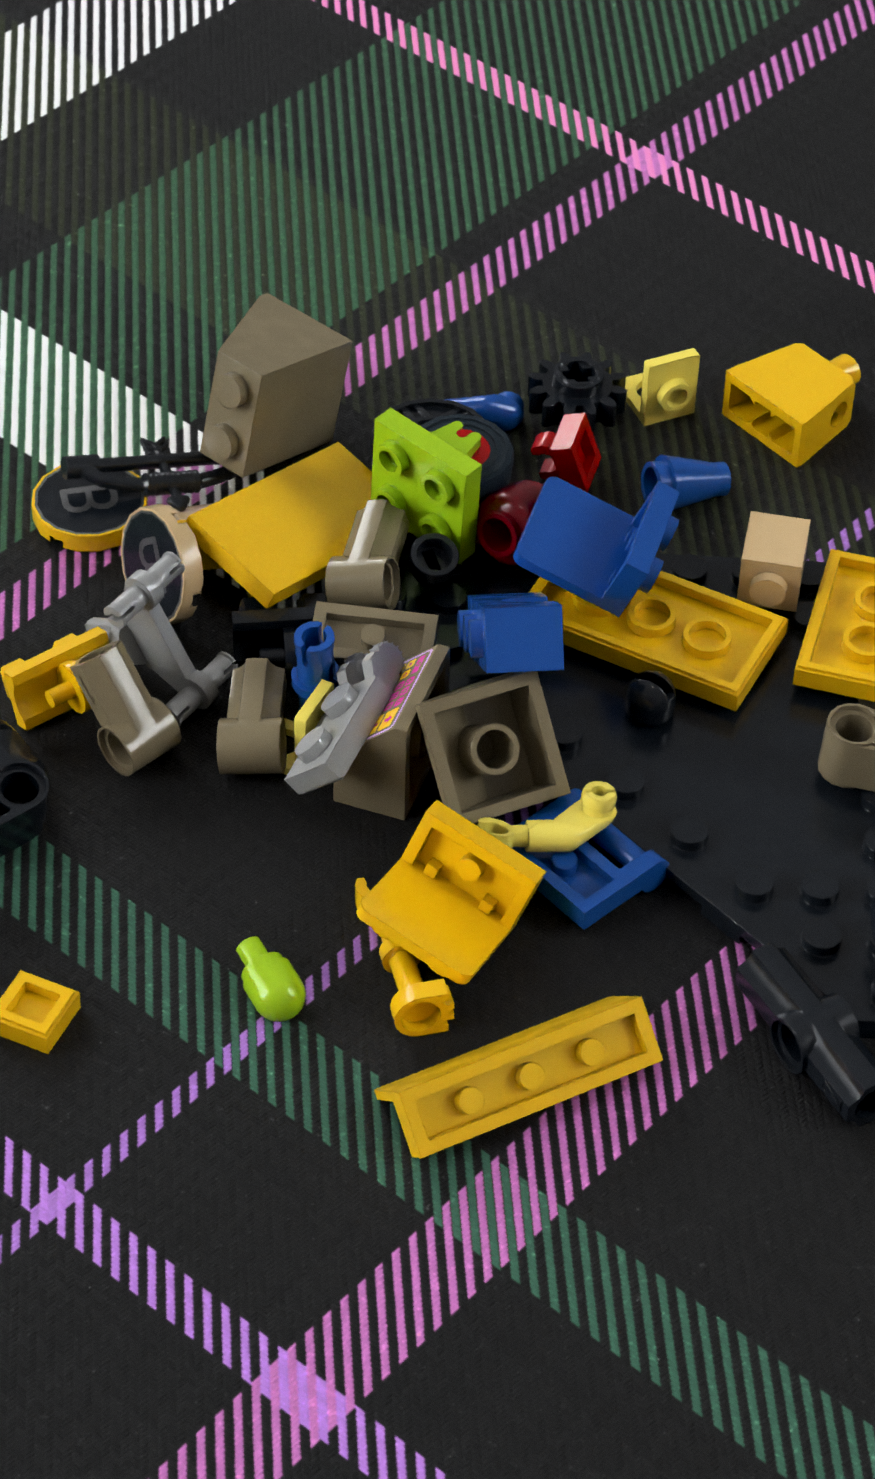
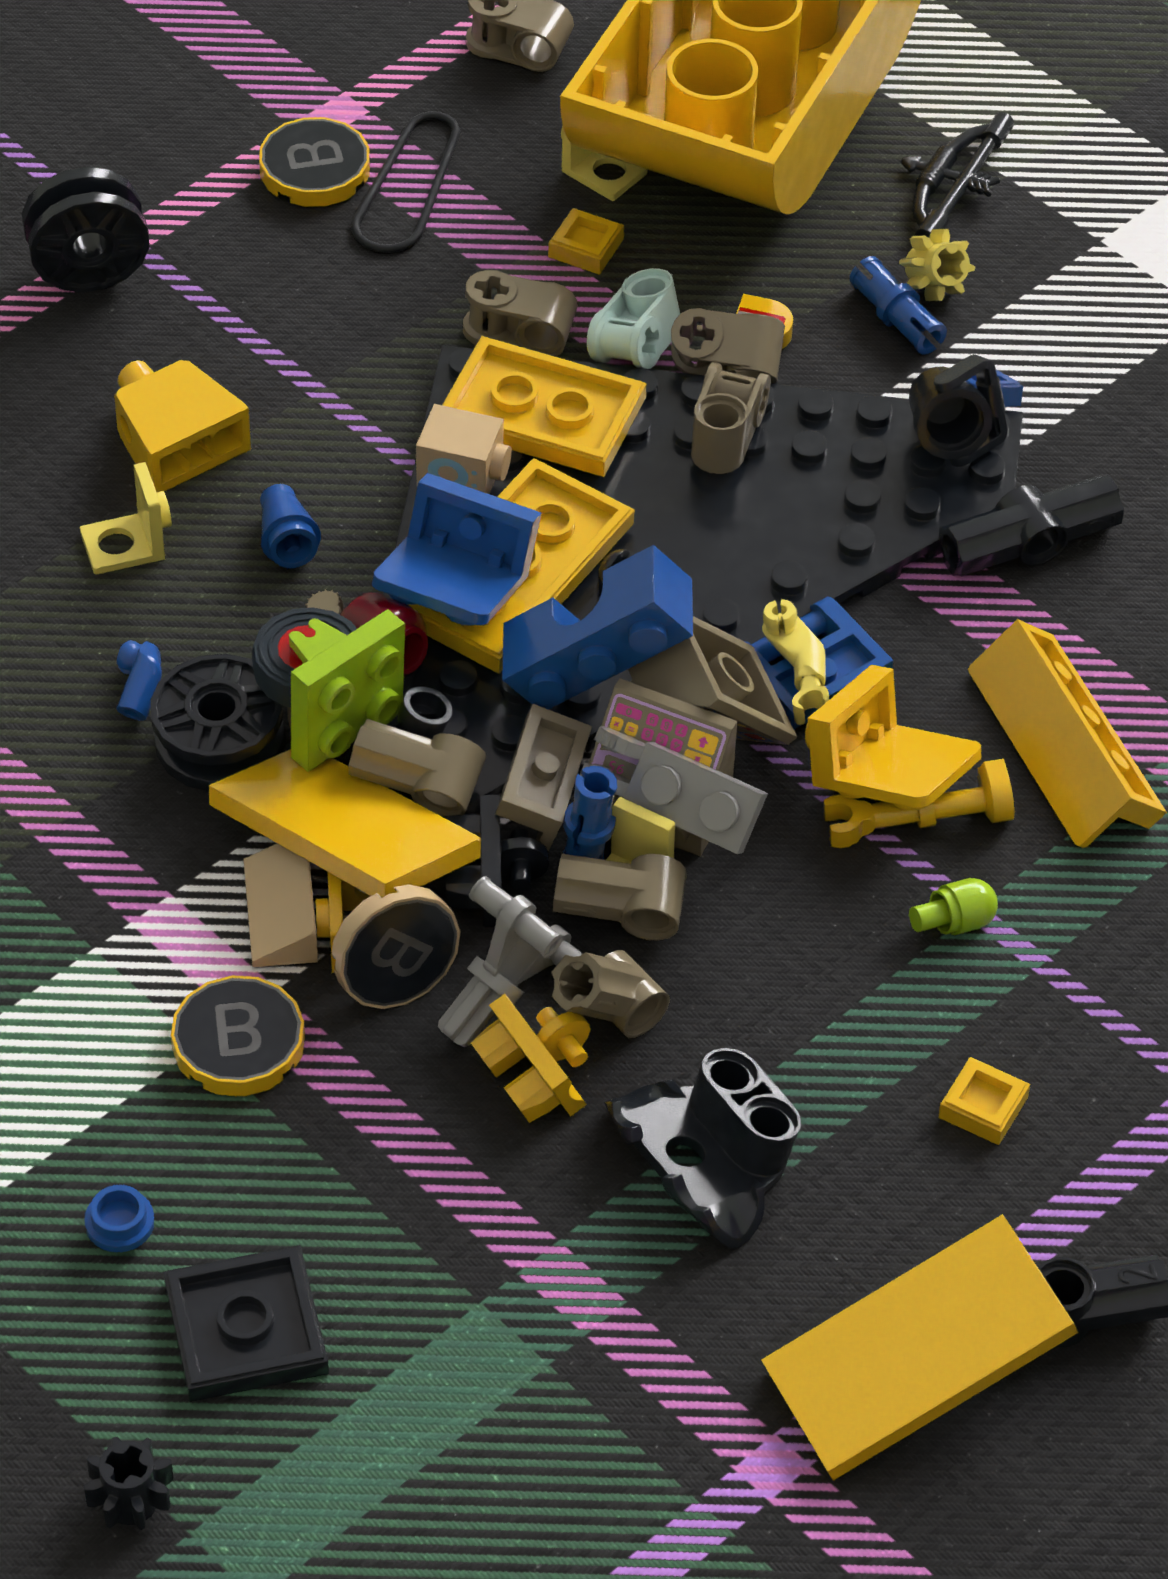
camera: 85 degrees left, 5 degrees up
(156, 456) = (230, 947): black piece -> none
(274, 388) = (128, 828): dark tan slope -> none
(572, 451) = (233, 607): red tile -> none
(577, 387) = (134, 592): black gear -> none

